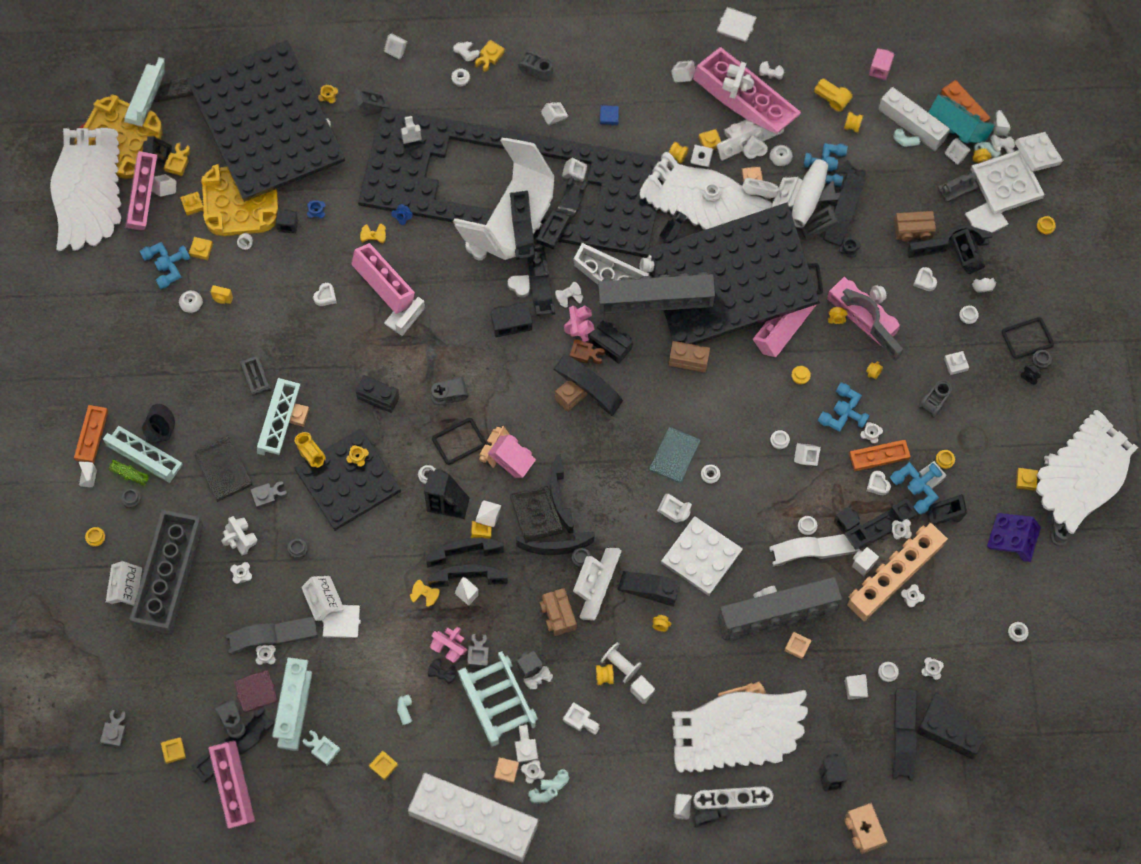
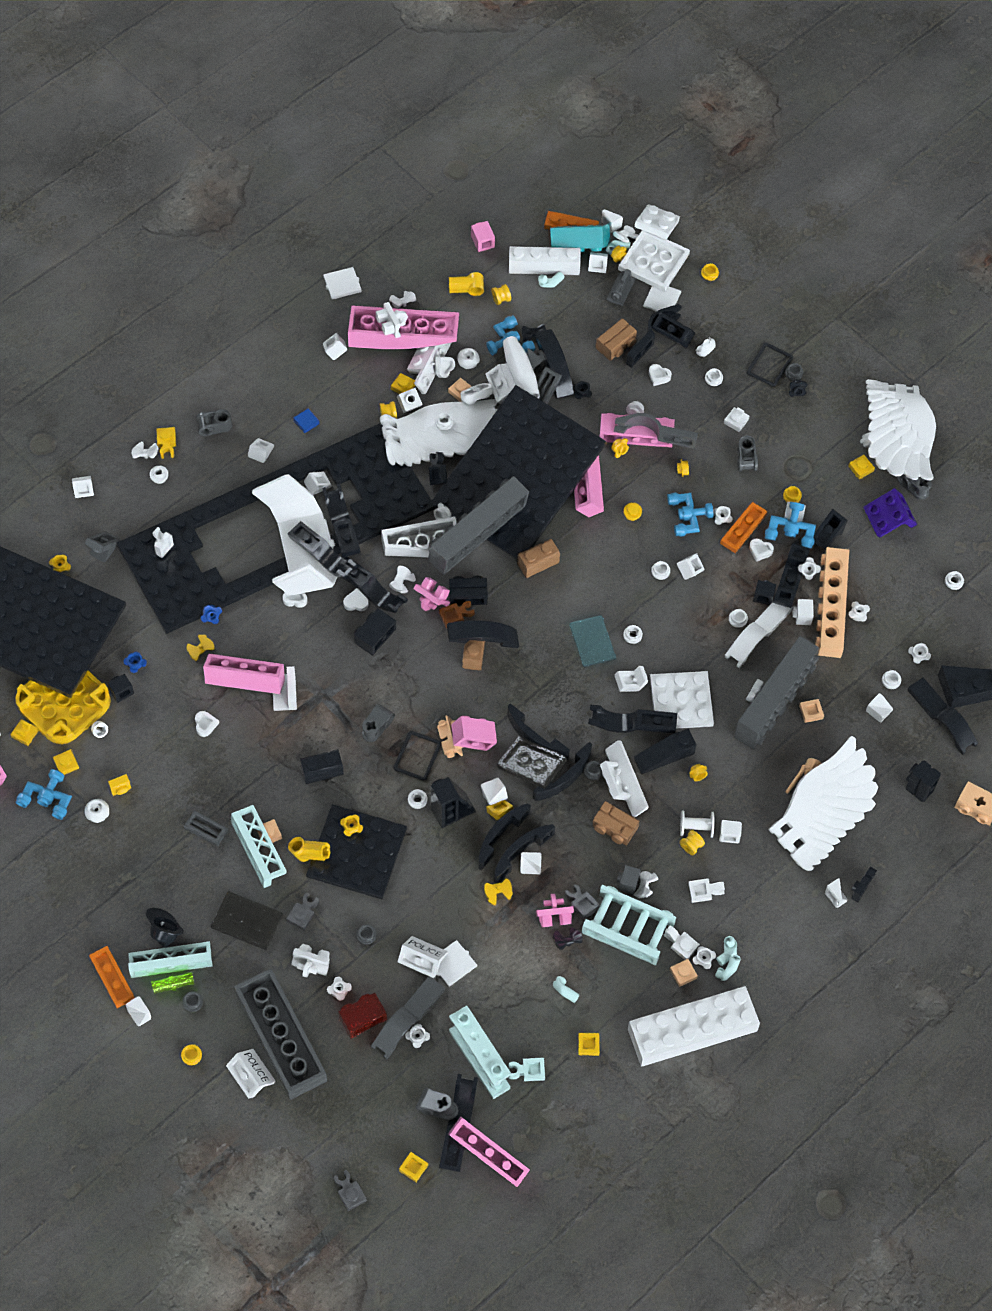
camera: 40 degrees left, 5 degrees down
(238, 606) = (362, 1015): none -> clear red brick
(255, 691) = (435, 1070): clear pink piece -> none
(647, 543) = (639, 720): none -> black piece
(732, 795) = (864, 857): white beam -> none

